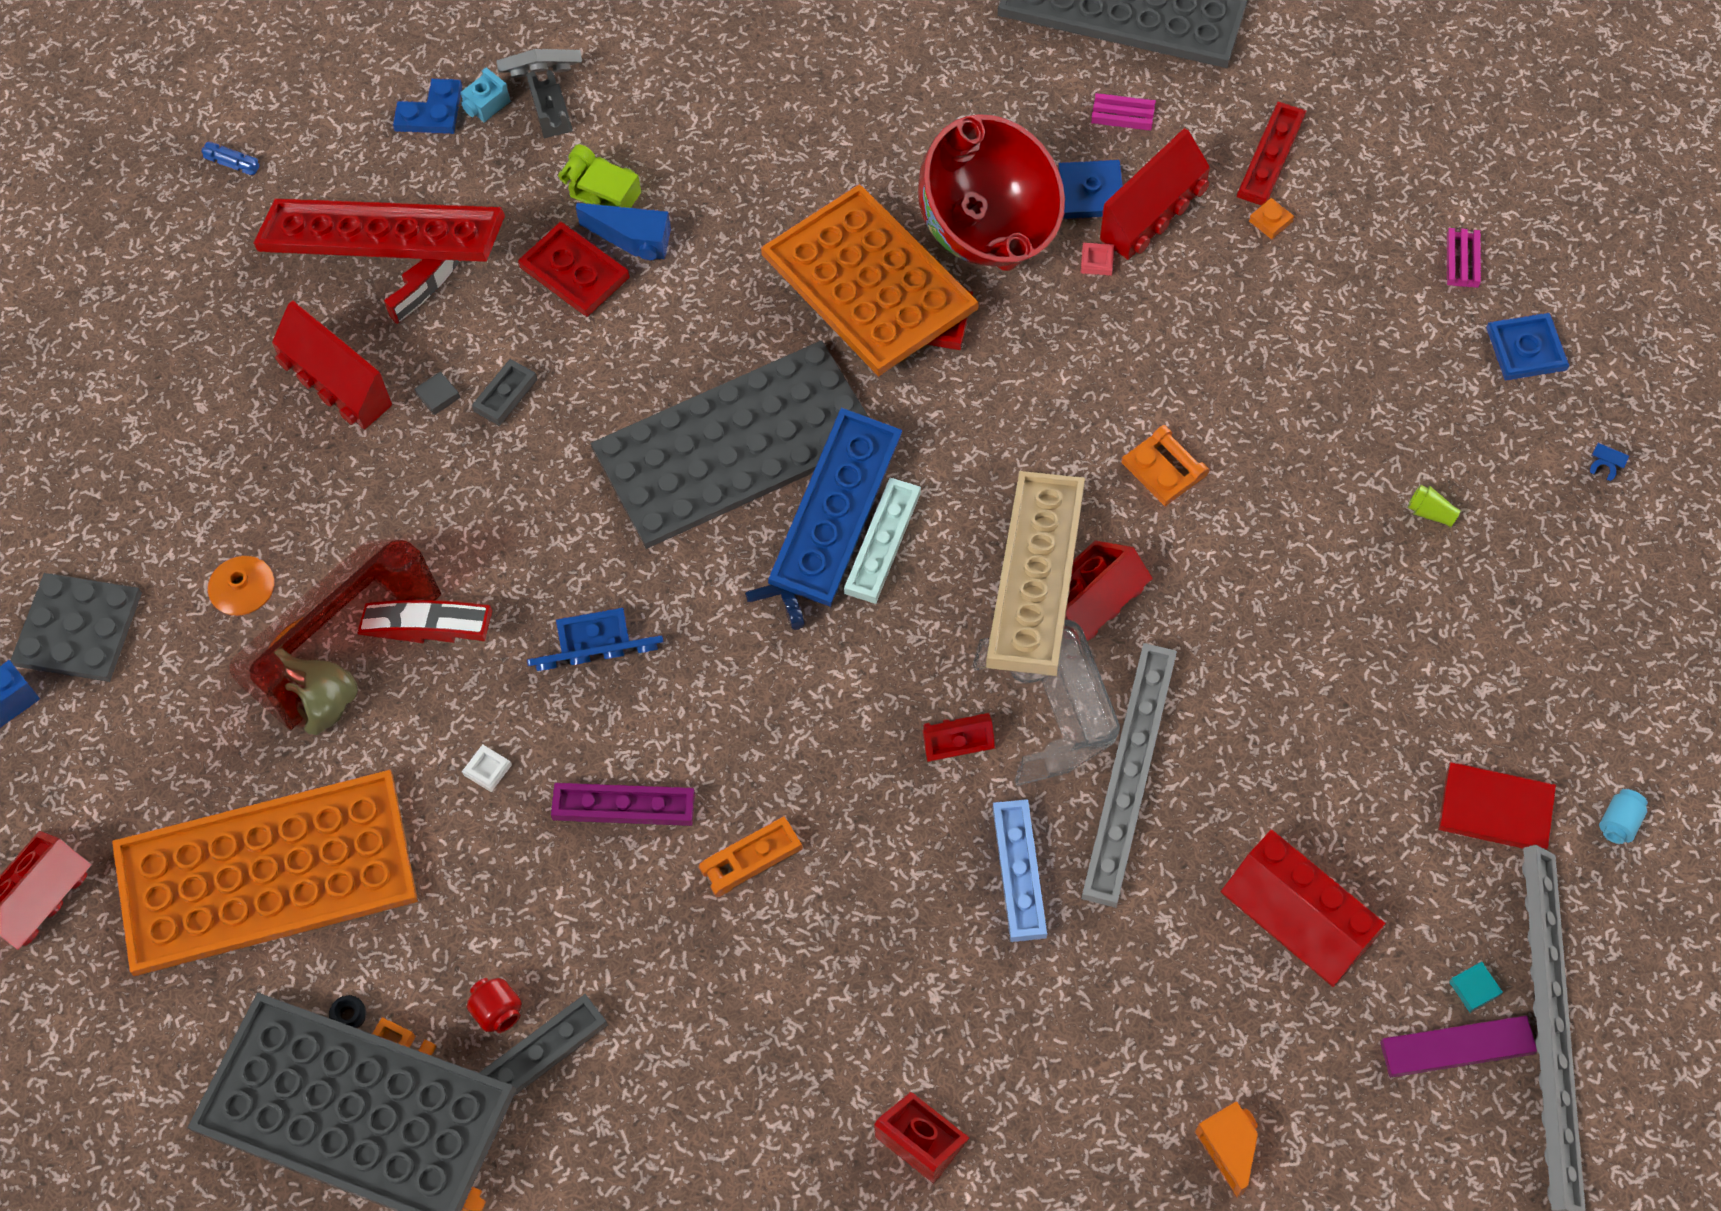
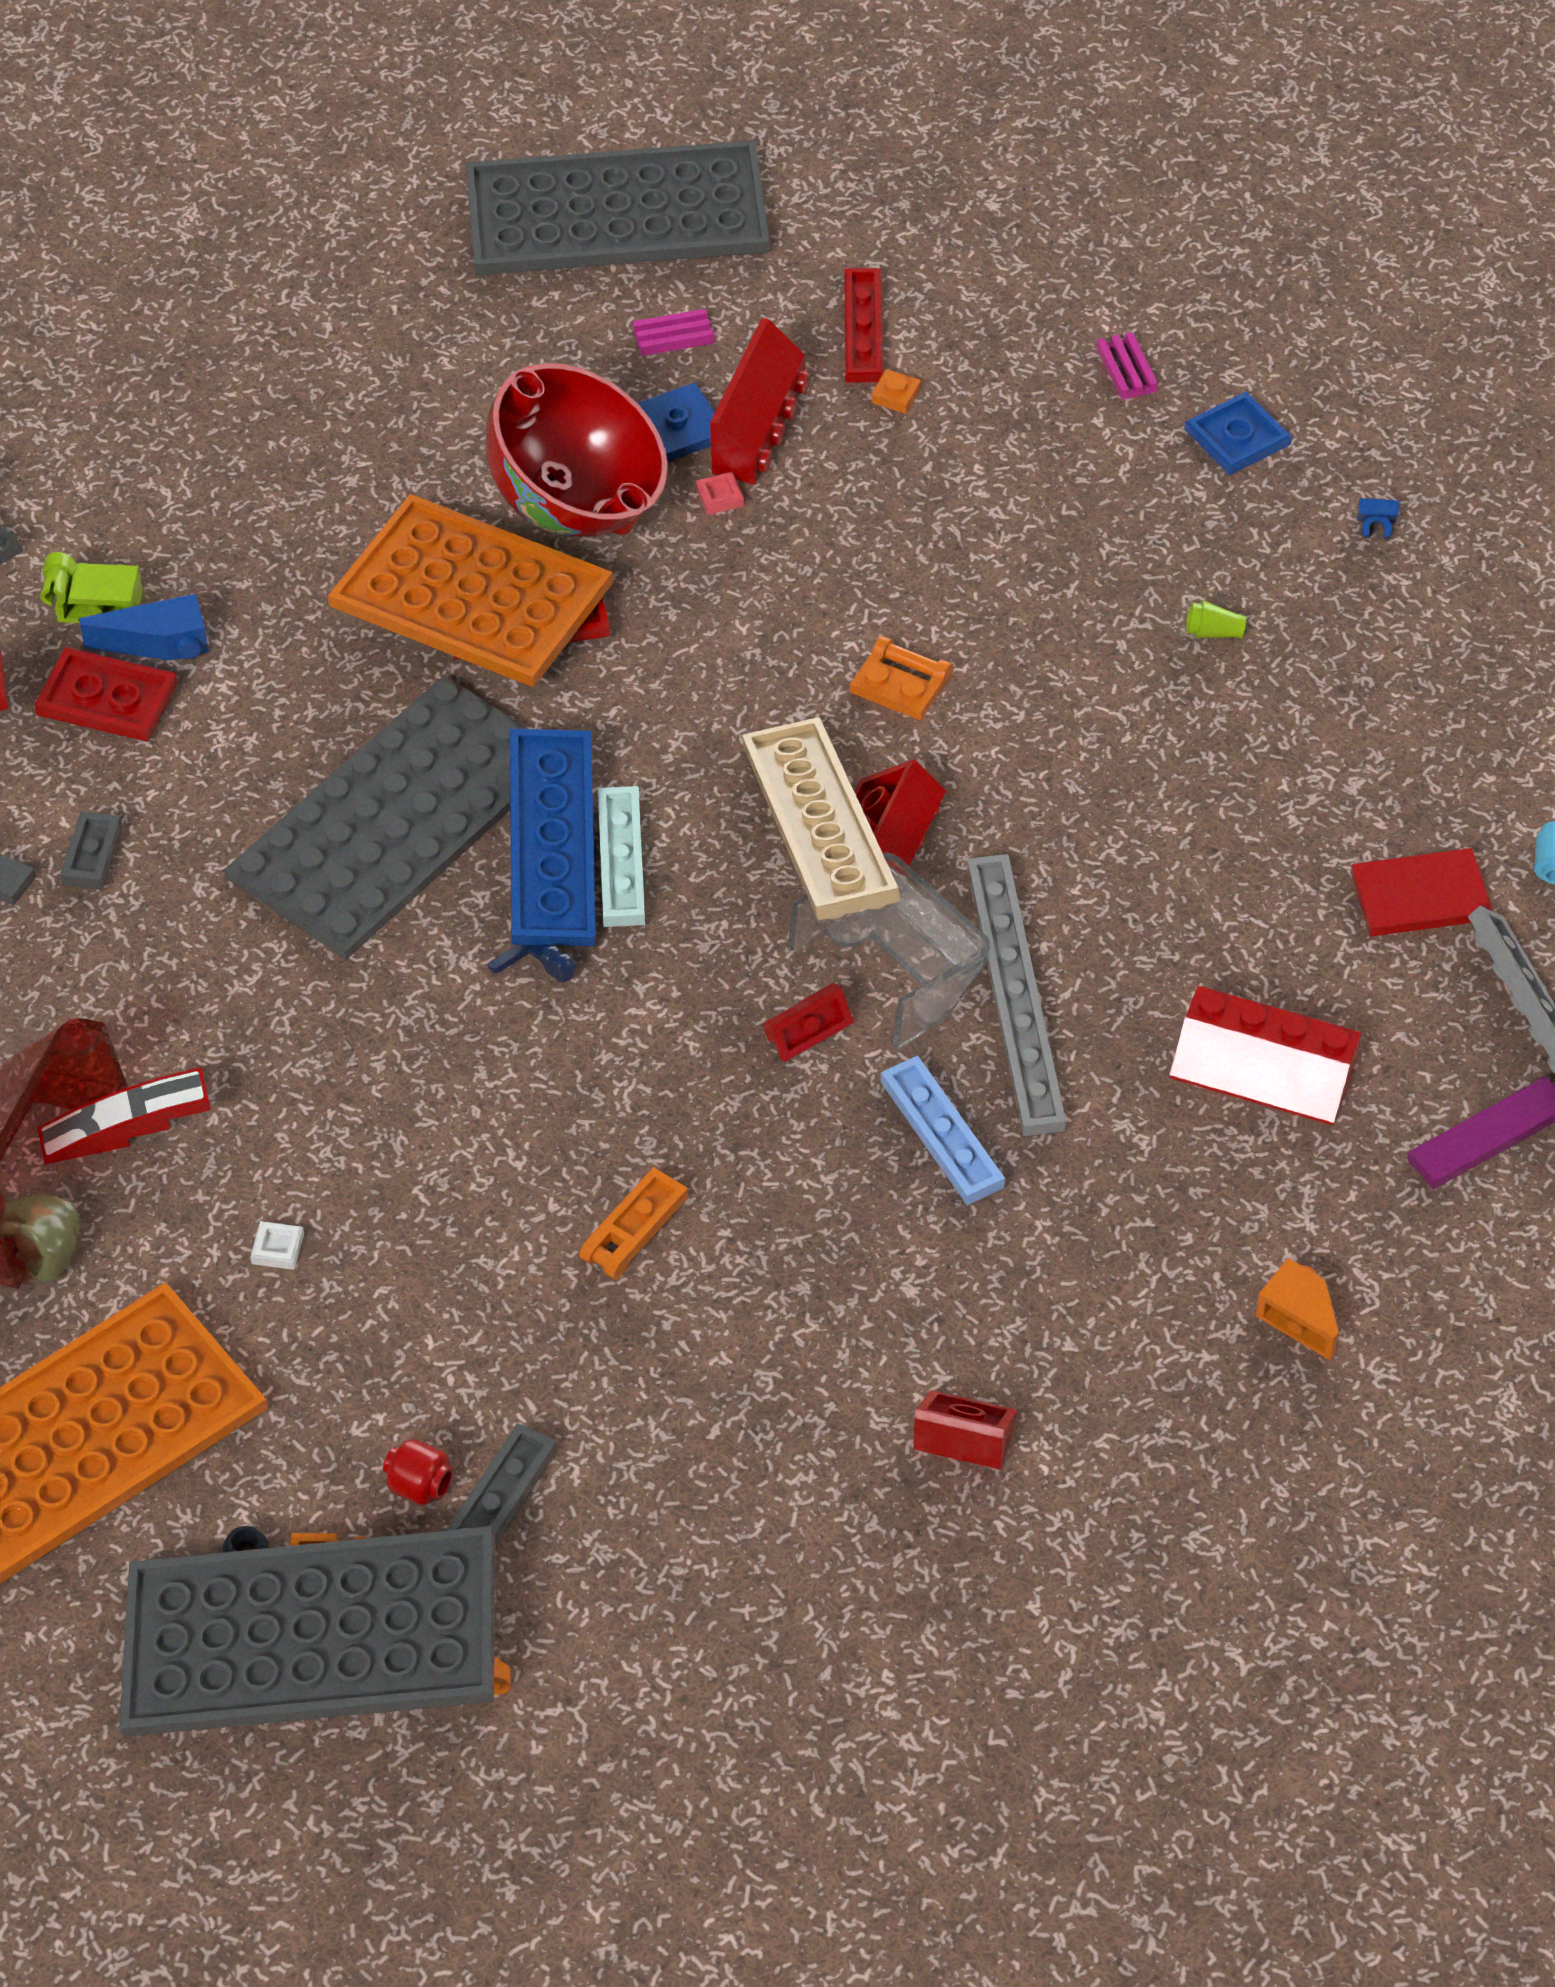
camera: 25 degrees left, 10 degrees down
(591, 635) = (334, 1063): blue bracket -> none
(623, 804) = (459, 1223): magenta plate -> none
(1475, 987) = (1481, 1070): teal tile -> none

